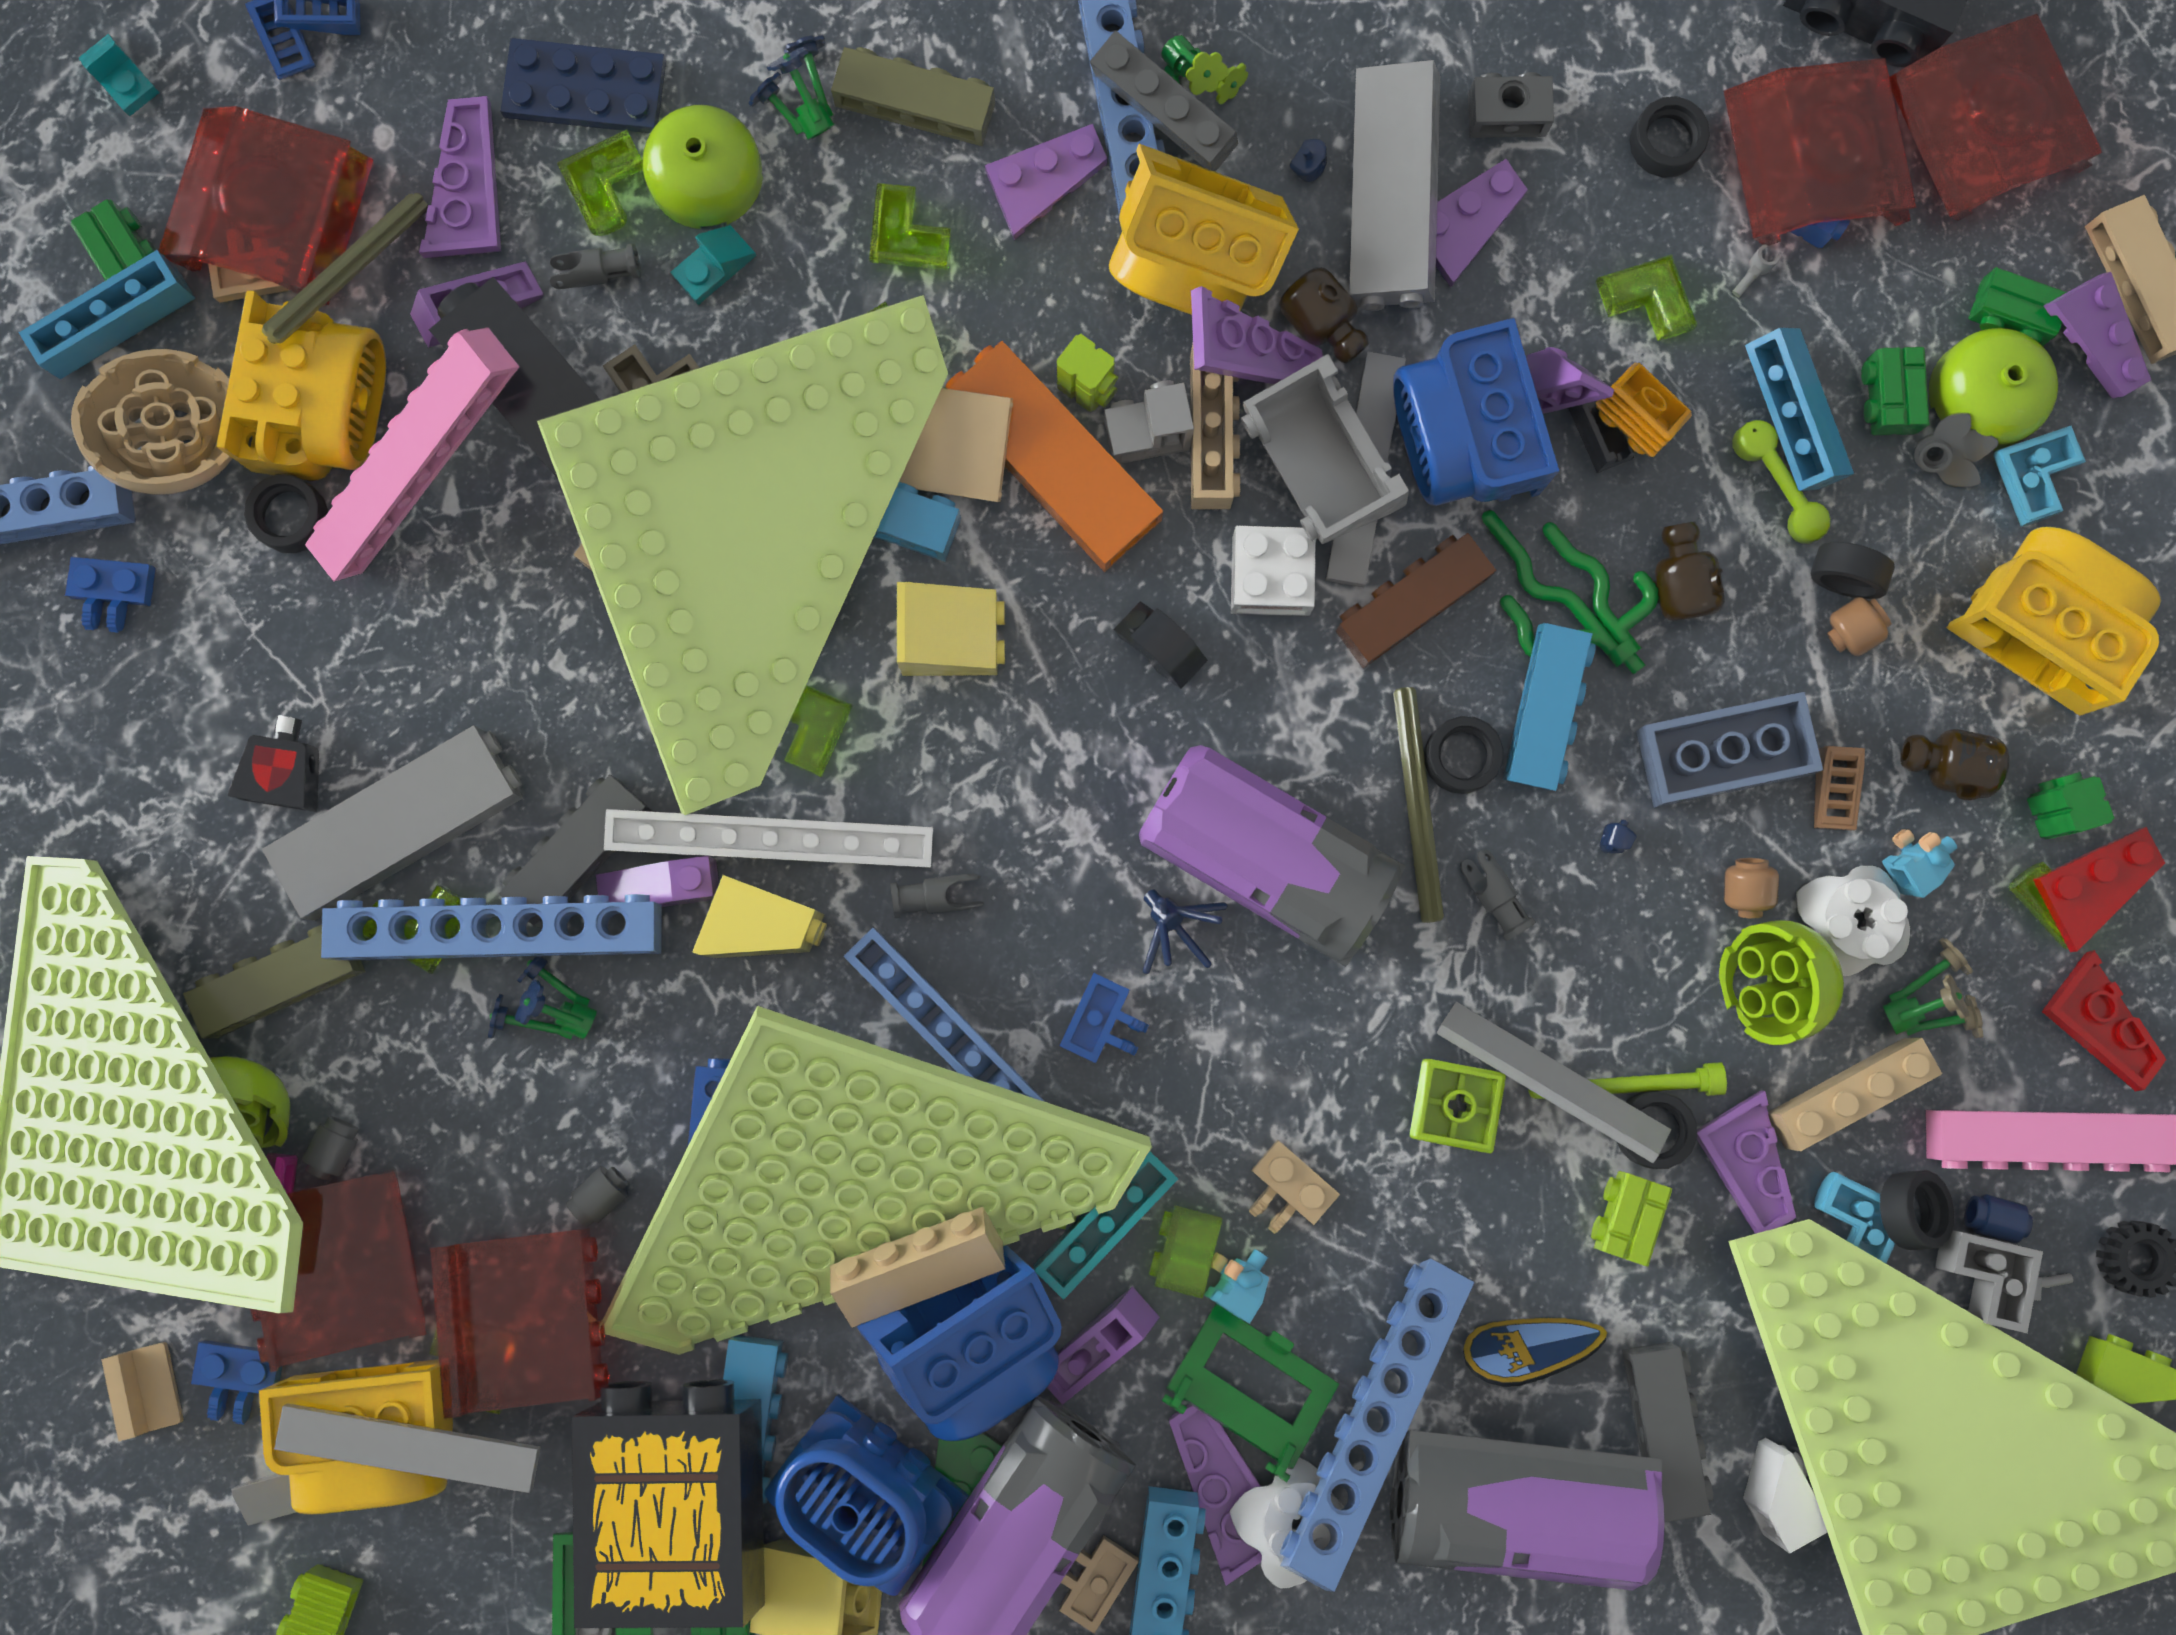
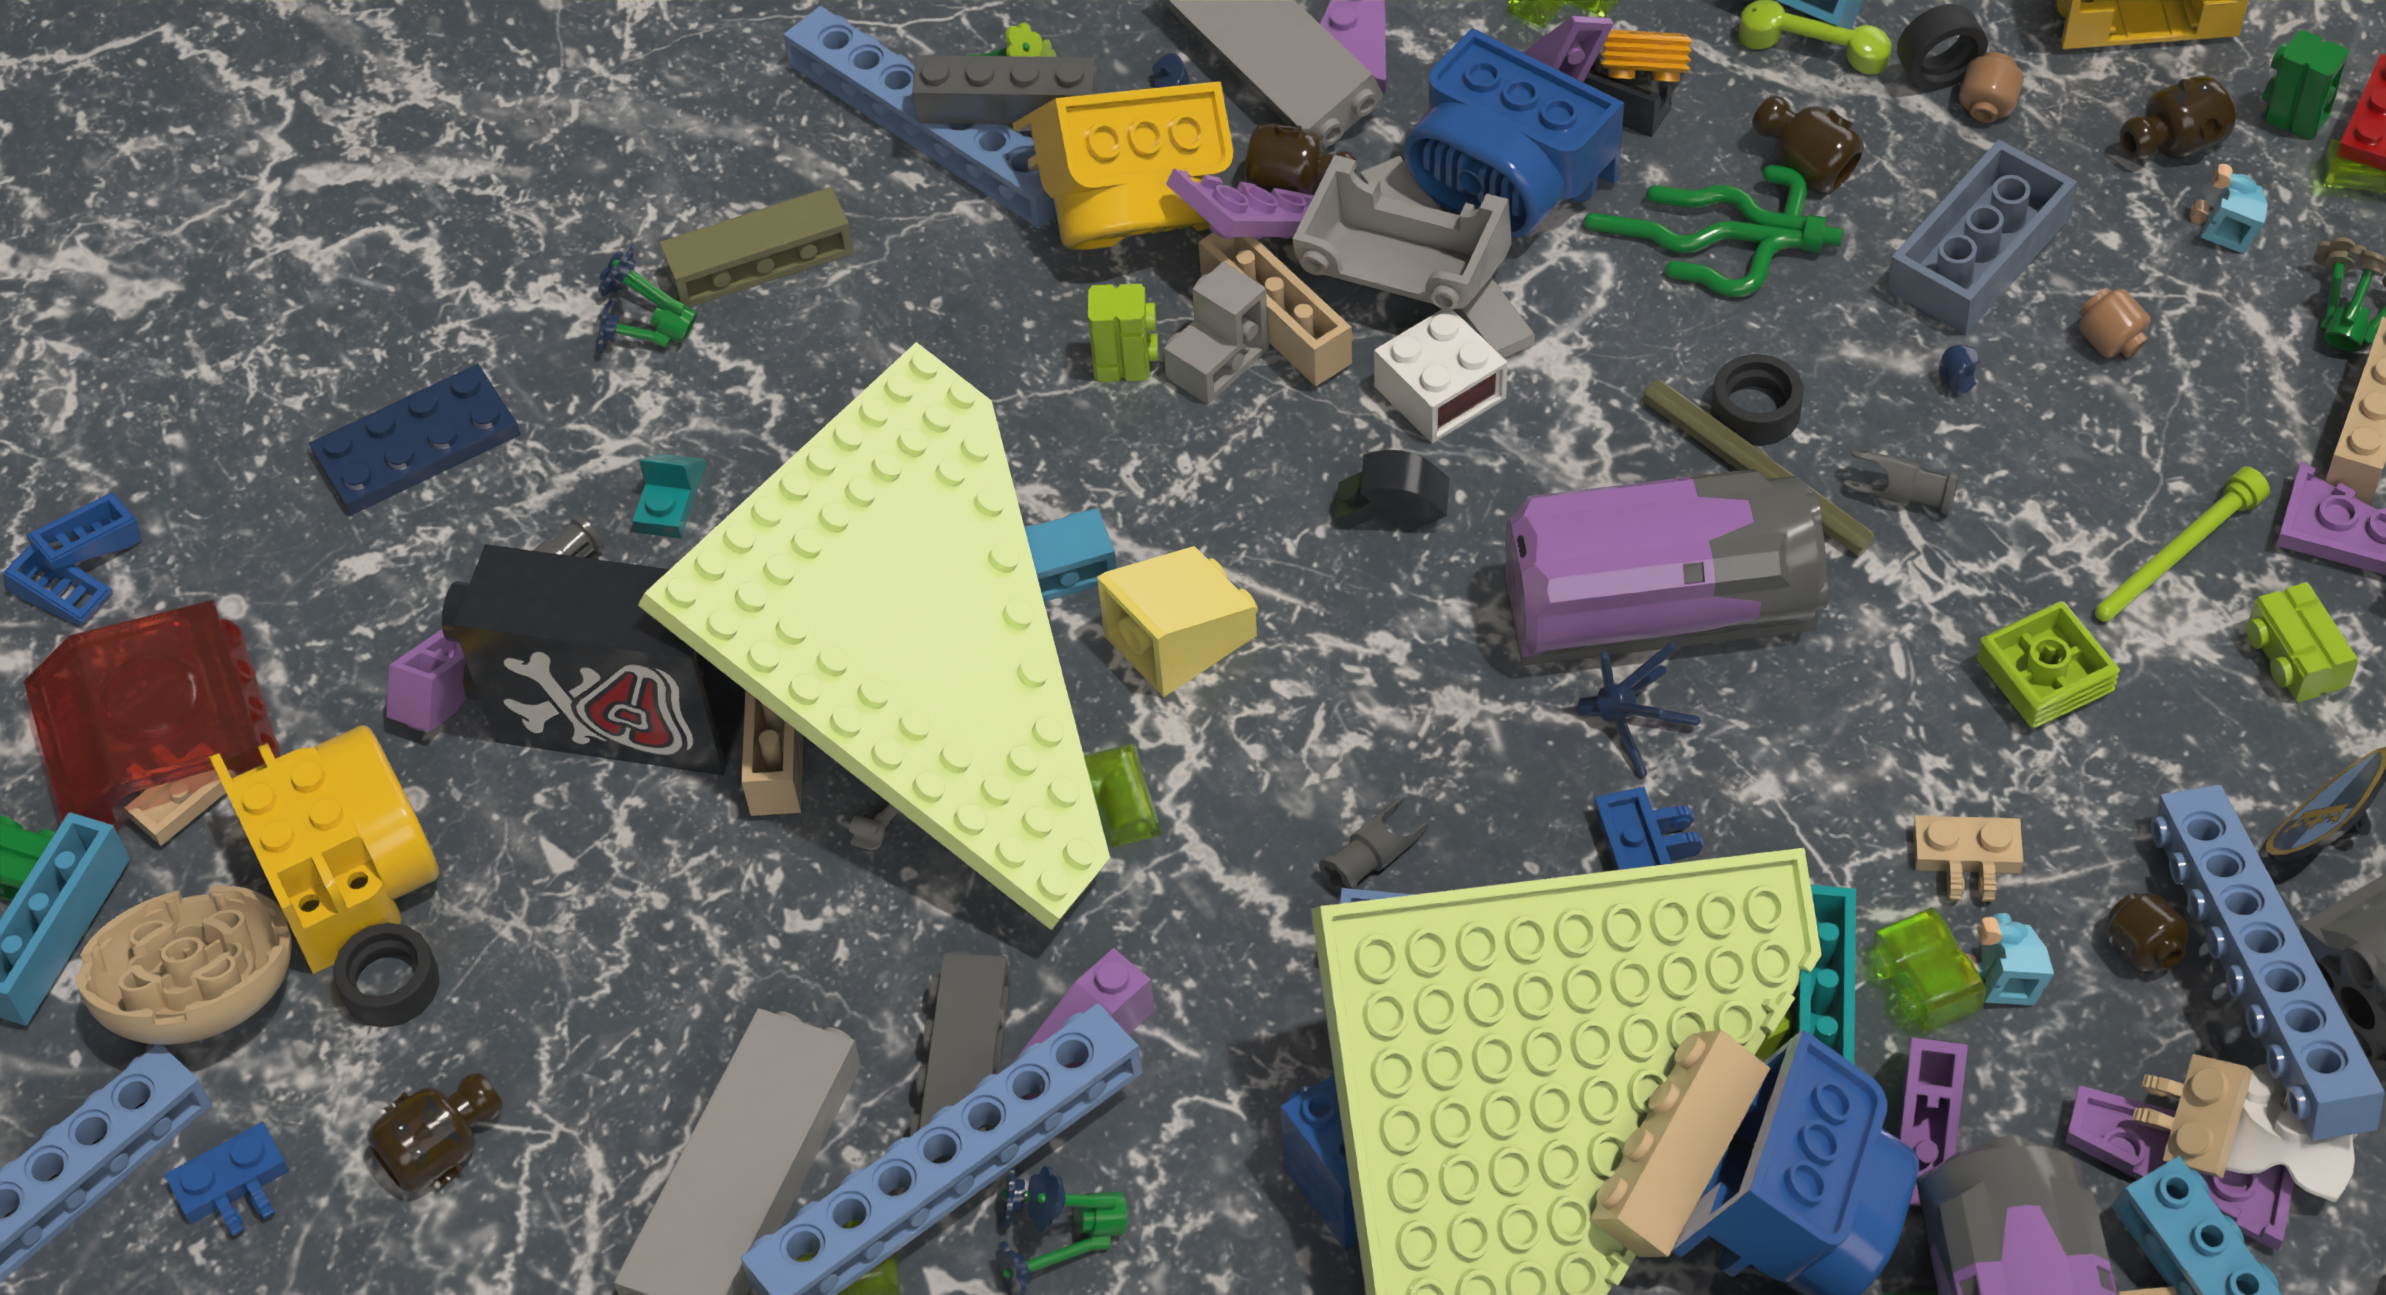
camera: 30 degrees left, 30 degrees down
(233, 654) = (429, 1135): none -> dark brown piece
(278, 769) = (569, 1211): black torso -> none
(344, 269) = (294, 696): olive axle -> none
(411, 452) = (506, 774): bright pink brick -> none
(464, 197) = (358, 584): medium lavender wing -> none
(591, 180) = (491, 493): clear neon green brick -> none
(702, 166) = (592, 420): lime cylinder -> none
(756, 923) = (1221, 974): light yellow slope -> none
(767, 838) = (1157, 900): white plate -> none
(900, 241) = (844, 357): clear neon green brick -> none
(962, 446) = (1058, 457): tan piece -> none
(1042, 175) = (933, 236): medium lavender wing -> none
(1063, 461) = (1147, 423): orange brick -> none
(1240, 1412) = (2107, 1070): green piece -> none
(1244, 1490) = (2205, 1114): none -> tan hinge
(1339, 1335) = (2147, 932): none -> dark brown head
(1415, 599) = (1590, 315): reddish brown brick -> none
(1548, 707) = (1794, 308): dark azure brick -> none
(1554, 1082) = (2112, 575): light grey tile -> none
(1687, 1129) = (2248, 533): black tyre -> none
(1801, 984) = (2196, 343): lime cylinder -> none
(1830, 906) = (2232, 284): white brick -> none
(1854, 772) = (2094, 185): medium nougat slope -> none

